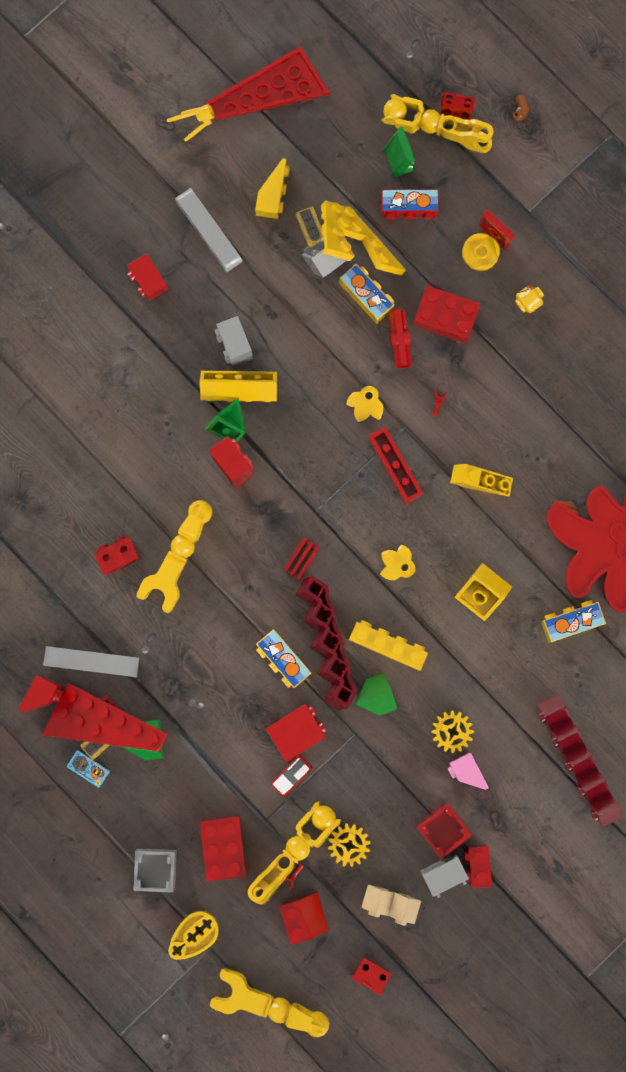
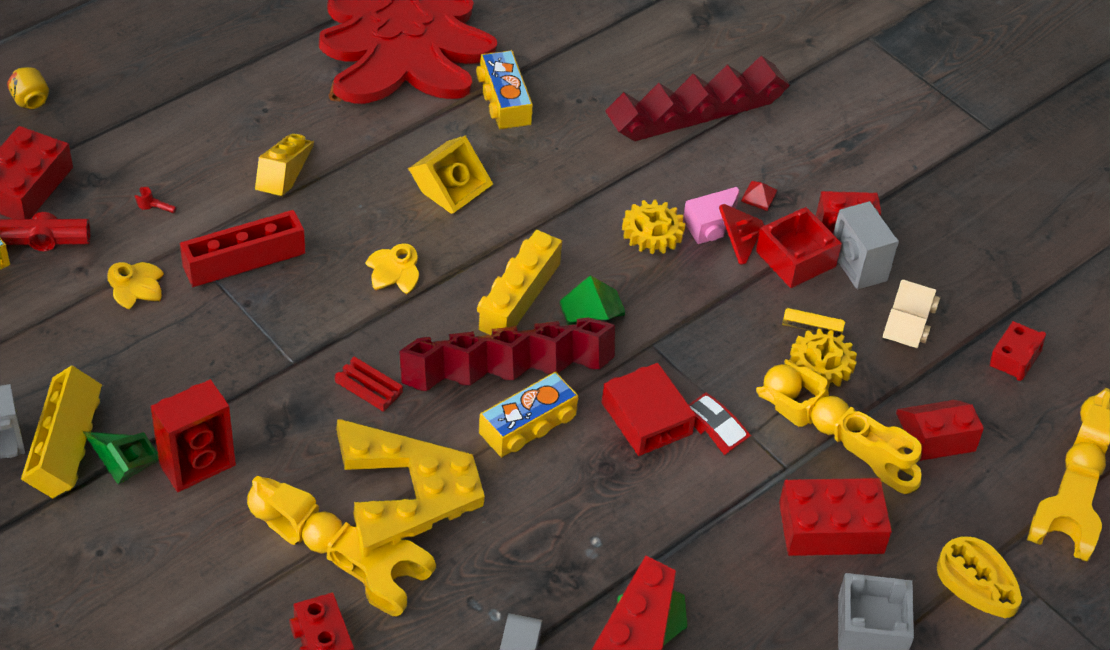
camera: 90 degrees left, 35 degrees down
(229, 611) = (442, 480): none -> yellow wing
(378, 839) = (812, 322): none -> yellow tile
(455, 791) = (742, 231): none -> red piece
(497, 804) = (759, 195): none -> red slope

